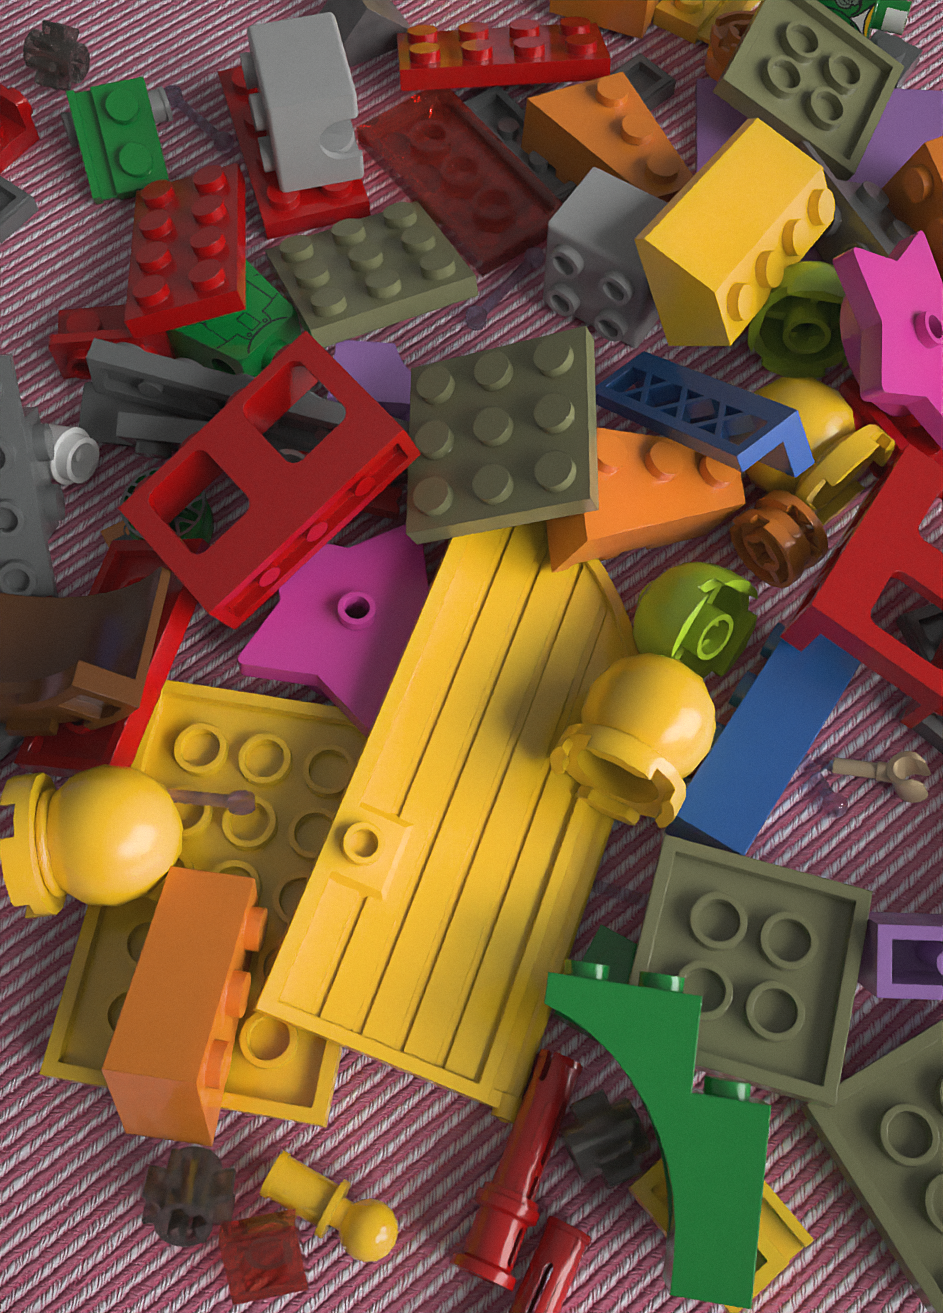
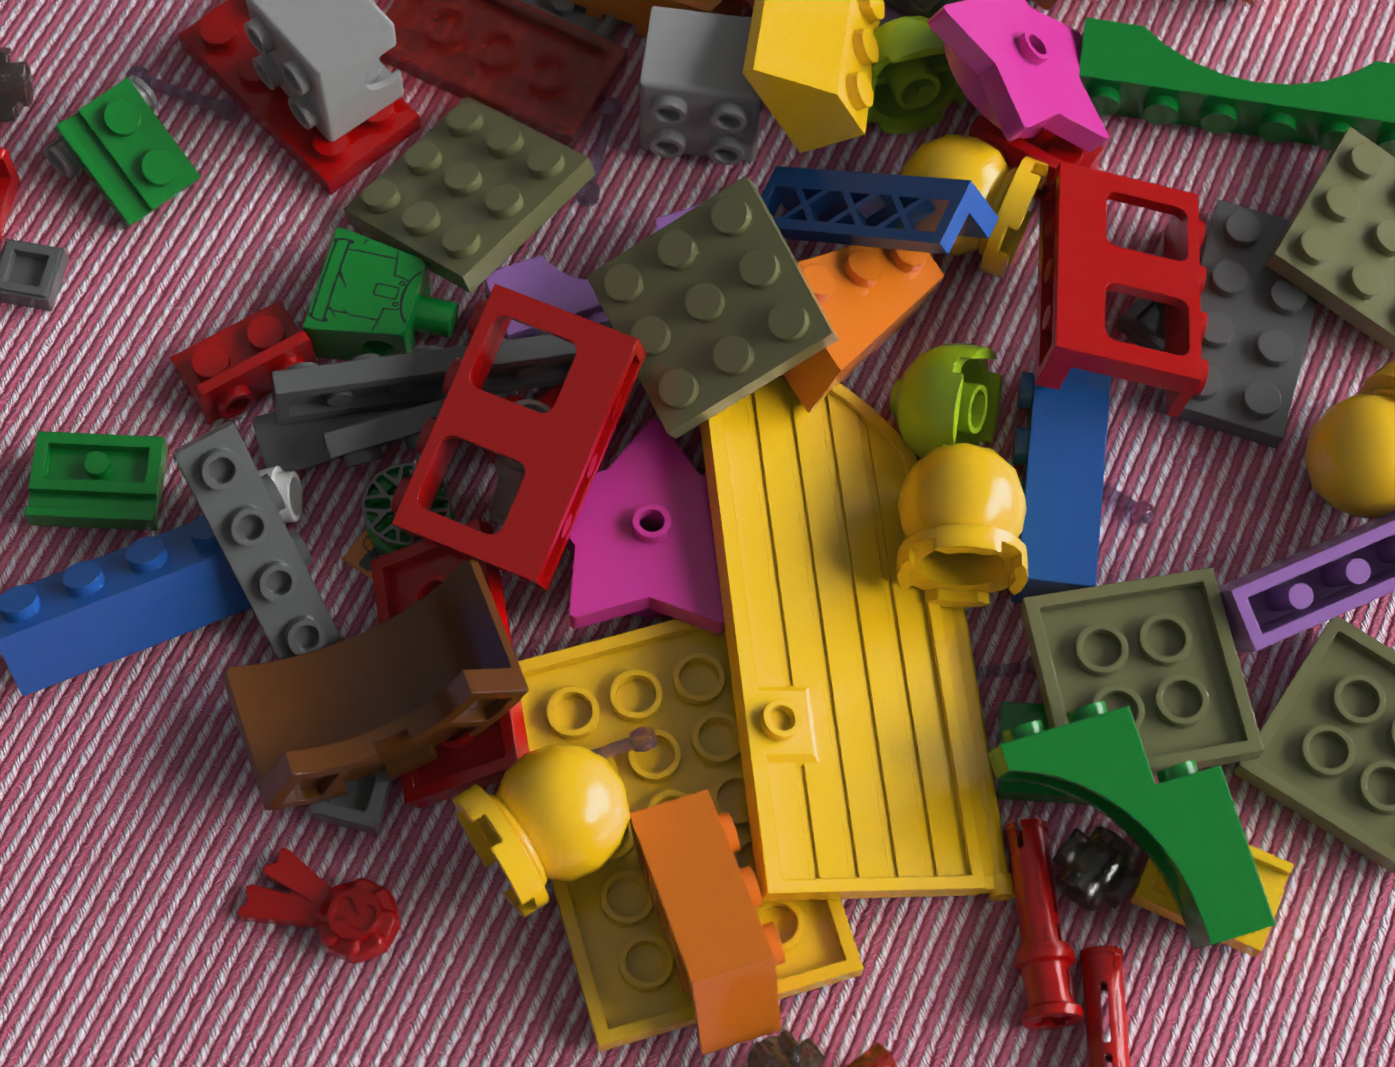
camera: 30 degrees left, 0 degrees up
(187, 251) = (280, 242): red plate -> none
(365, 1227) = (939, 1032): yellow pin -> none
(776, 539) = (983, 297): orange wheel -> none
(894, 772) = (1177, 462): tan hand -> none

